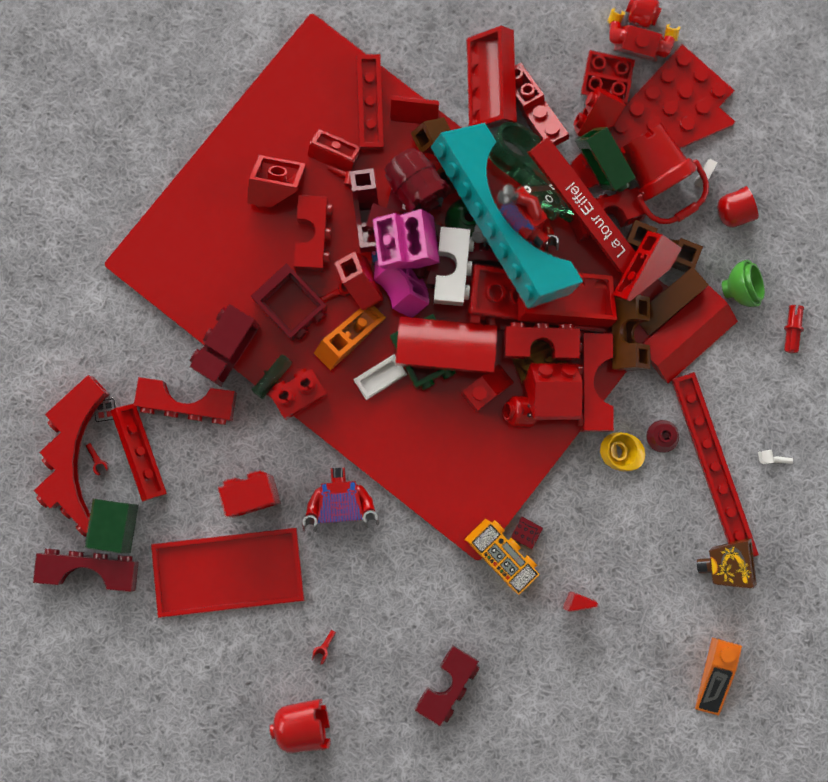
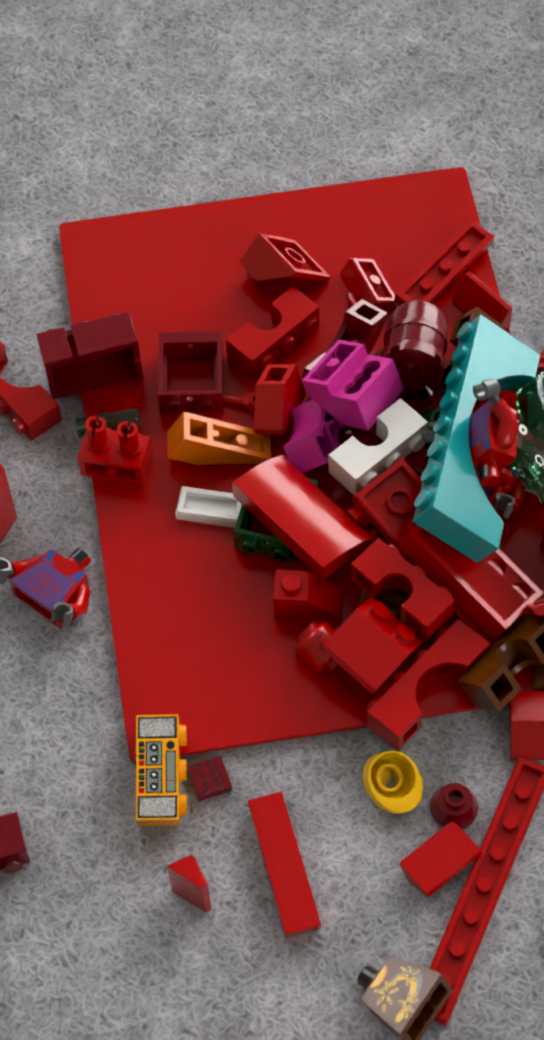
camera: 50 degrees right, 25 degrees down
(609, 546) = (284, 865): none -> red slope
(684, 473) = (439, 859): none -> red slope

